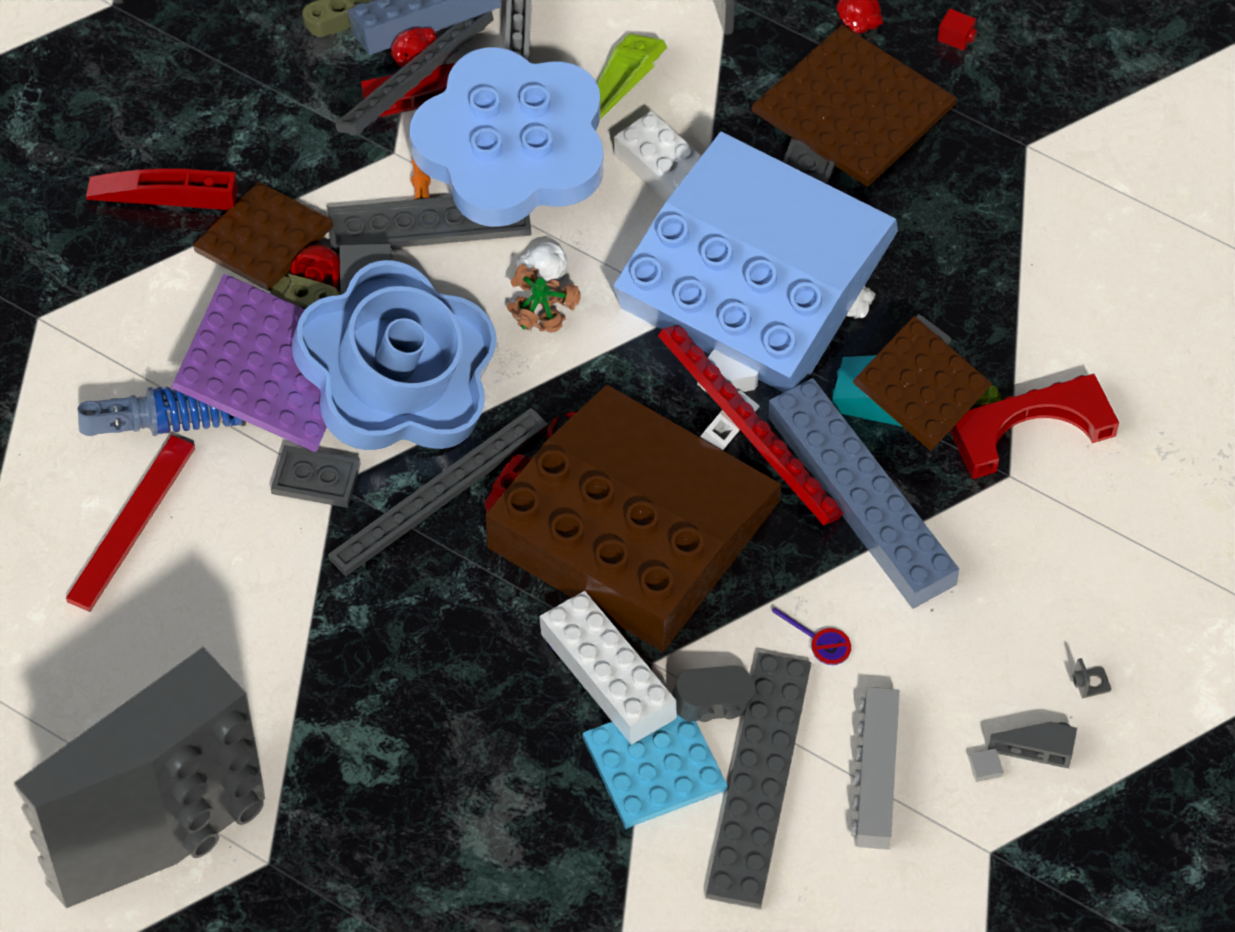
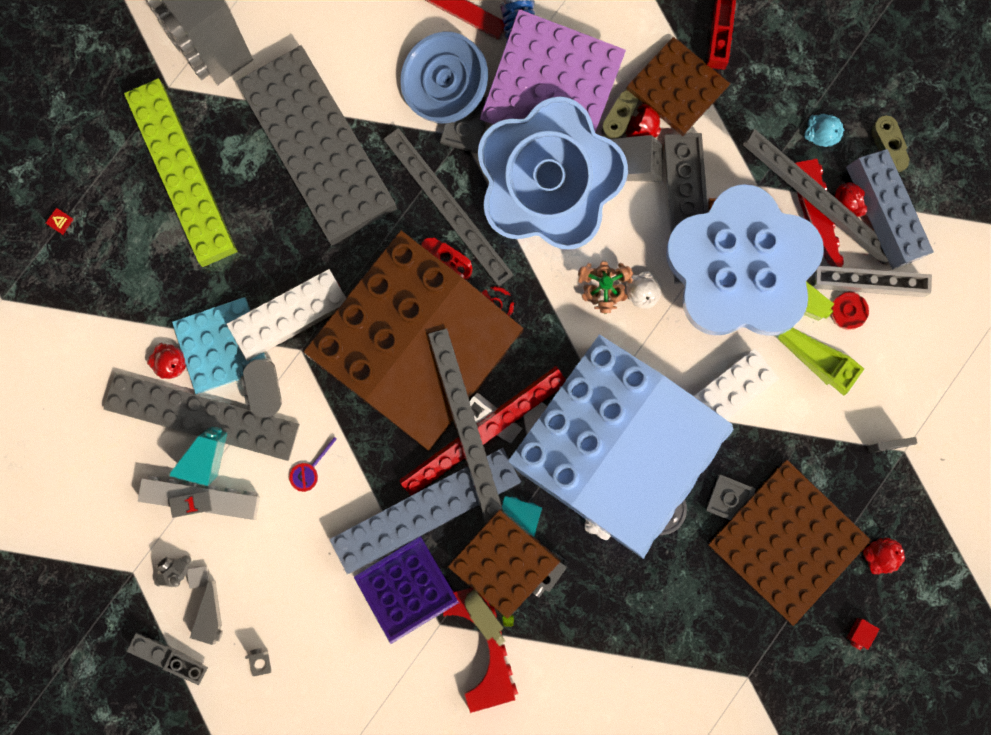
camera: 90 degrees right, 25 degrees up
(257, 495) = (444, 77): none -> medium blue container
(320, 80) = (824, 130): none -> medium azure hair
(361, 652) = (316, 145): none -> dark grey brick
(401, 826) = (180, 173): none -> lime brick
(555, 48) = (849, 311): none -> red tile
(684, 824) = (163, 359): none -> red hair
(744, 431) = (465, 423): none -> dark grey plate
(819, 754) = (203, 458): none -> teal slope
(888, 765) = (190, 504): none -> dark grey tile
(972, 502) = (405, 590): none -> dark purple plate
(986, 789) = (171, 571): none -> dark grey rock
(994, 405) = (483, 617): none -> olive piece
(1104, 788) = (167, 658): none -> dark grey slope

